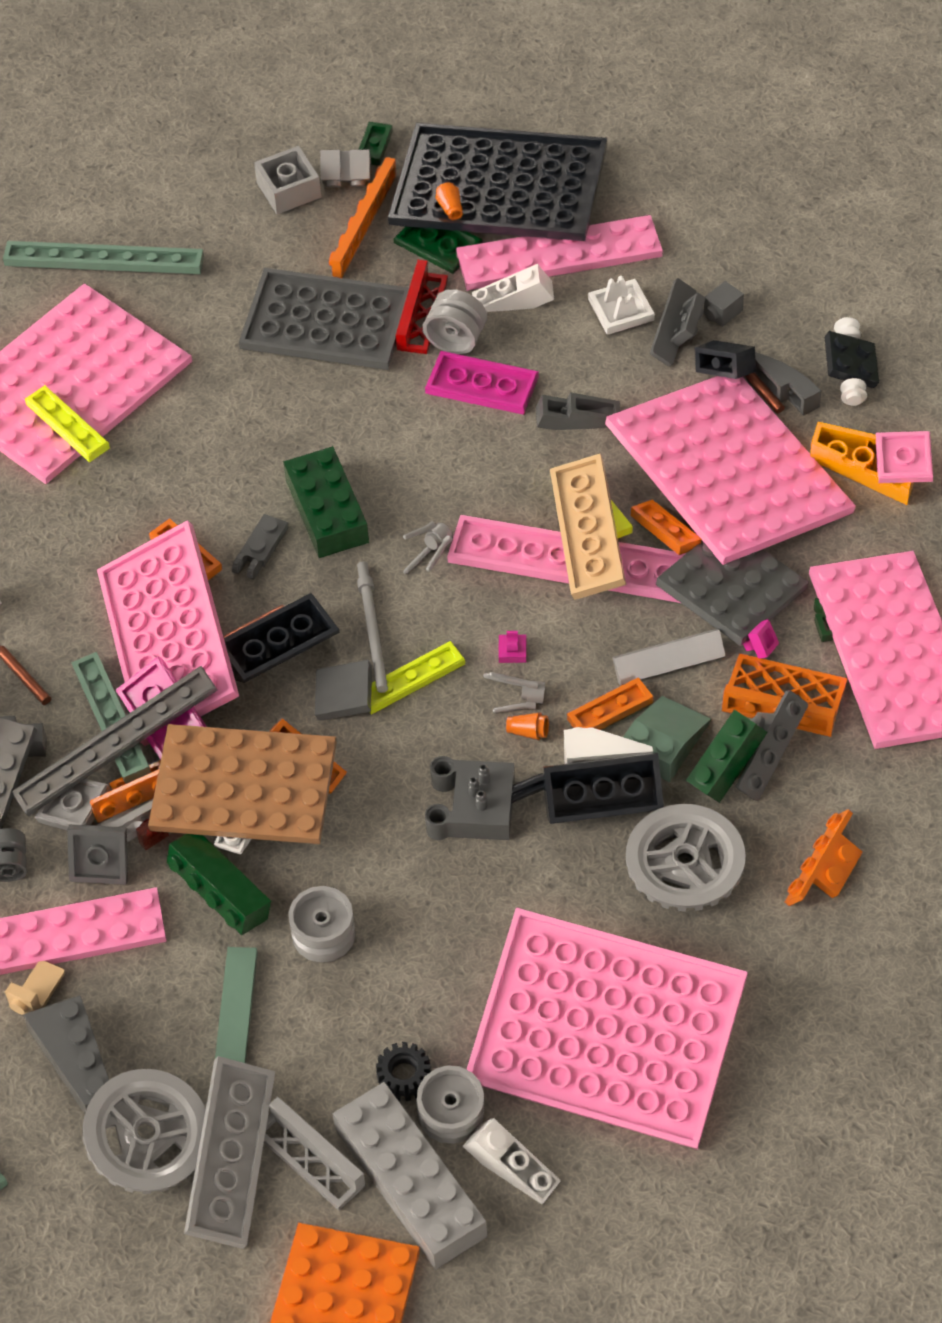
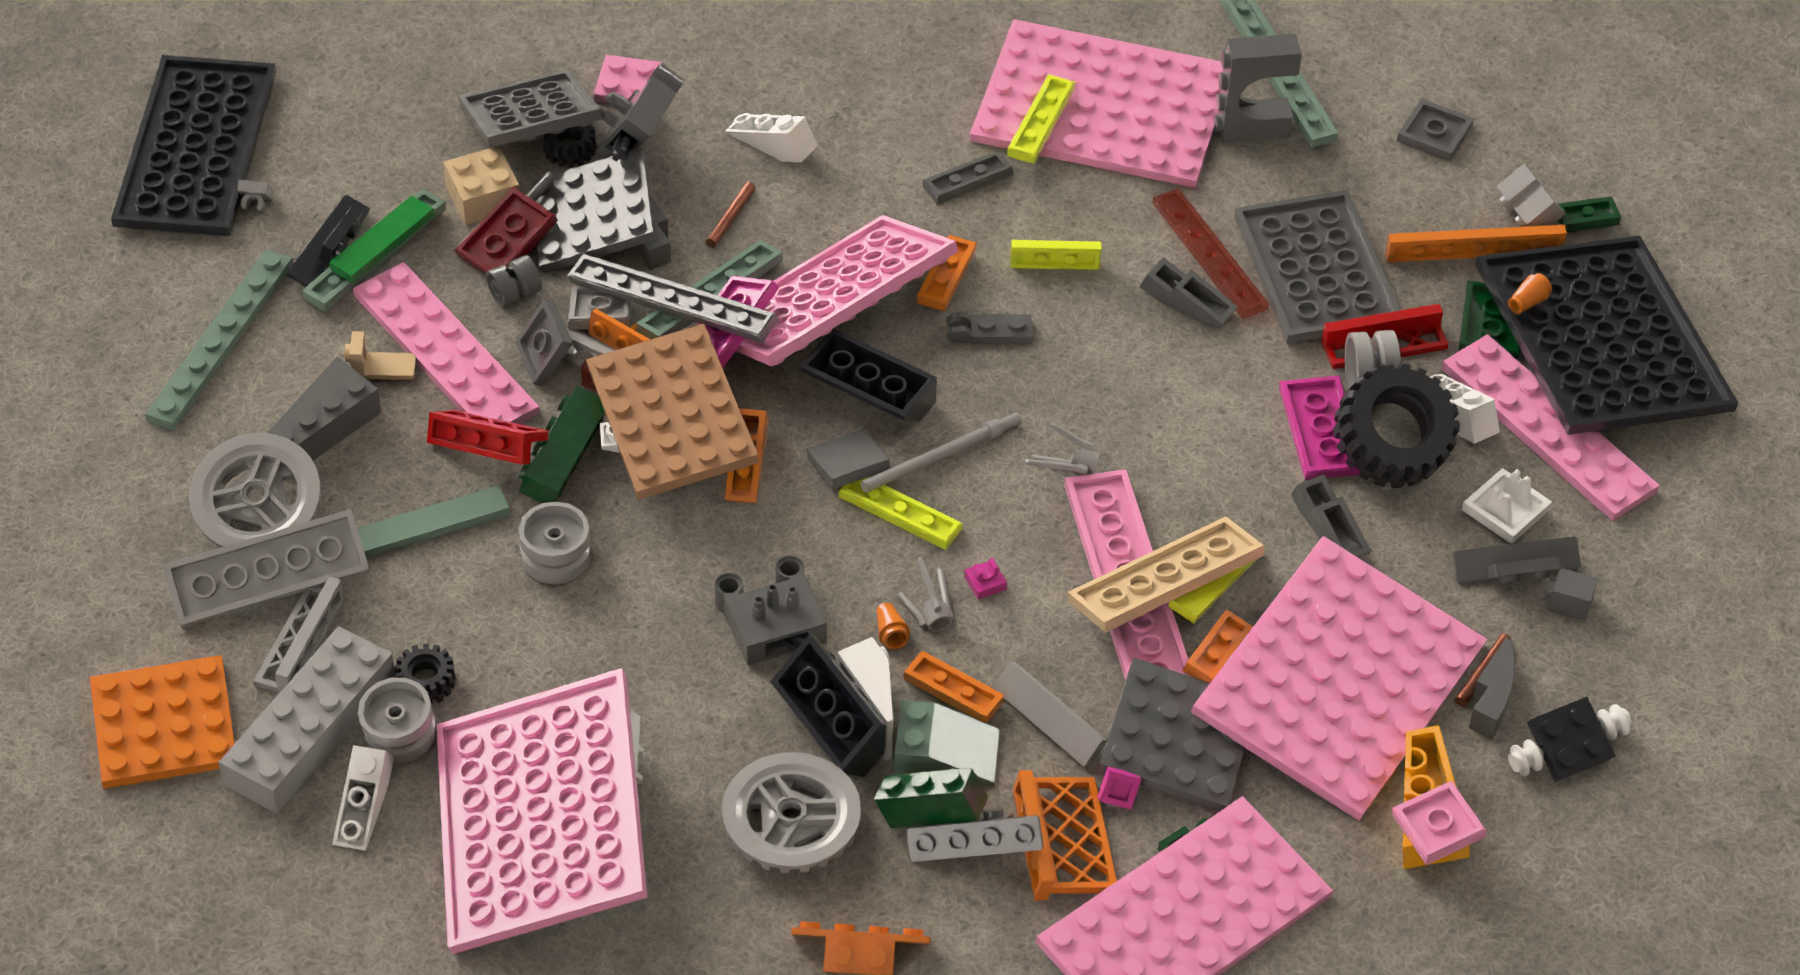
camera: 60 degrees right, 5 degrees down
(88, 500) = (967, 177): none -> dark grey tile
(146, 281) = (1242, 64): none -> dark grey arch
(178, 933) = (483, 435): none -> red fence
(213, 473) = (1055, 254): none -> neon yellow tile
(231, 194) = (1435, 129): none -> dark grey tile
(267, 378) = (1210, 253): none -> clear red tile
(287, 180) = (1476, 160): light grey brick -> none
(304, 407) = (1187, 294): none -> dark grey slope
(326, 502) = (1072, 354): dark green brick -> none
(514, 347) = (1422, 399): none -> black tyre
(725, 359) = (1482, 617): black brick -> none

